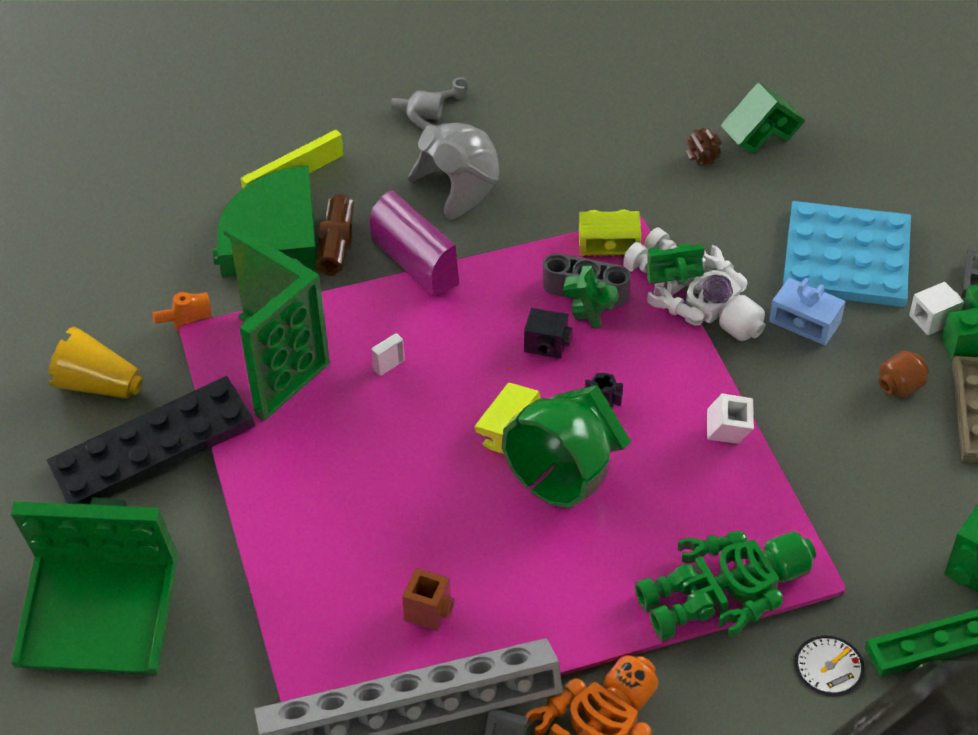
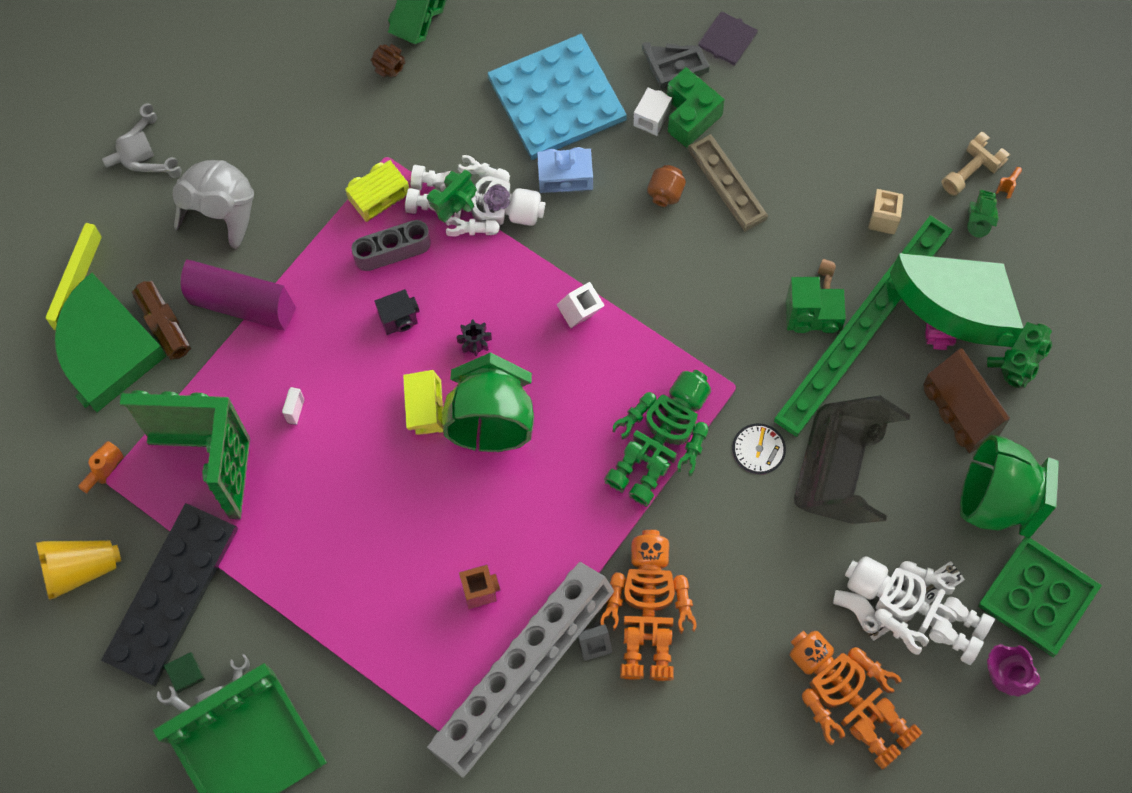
camera: 35 degrees left, 20 degrees up
(593, 296) = (407, 261): green hips -> none

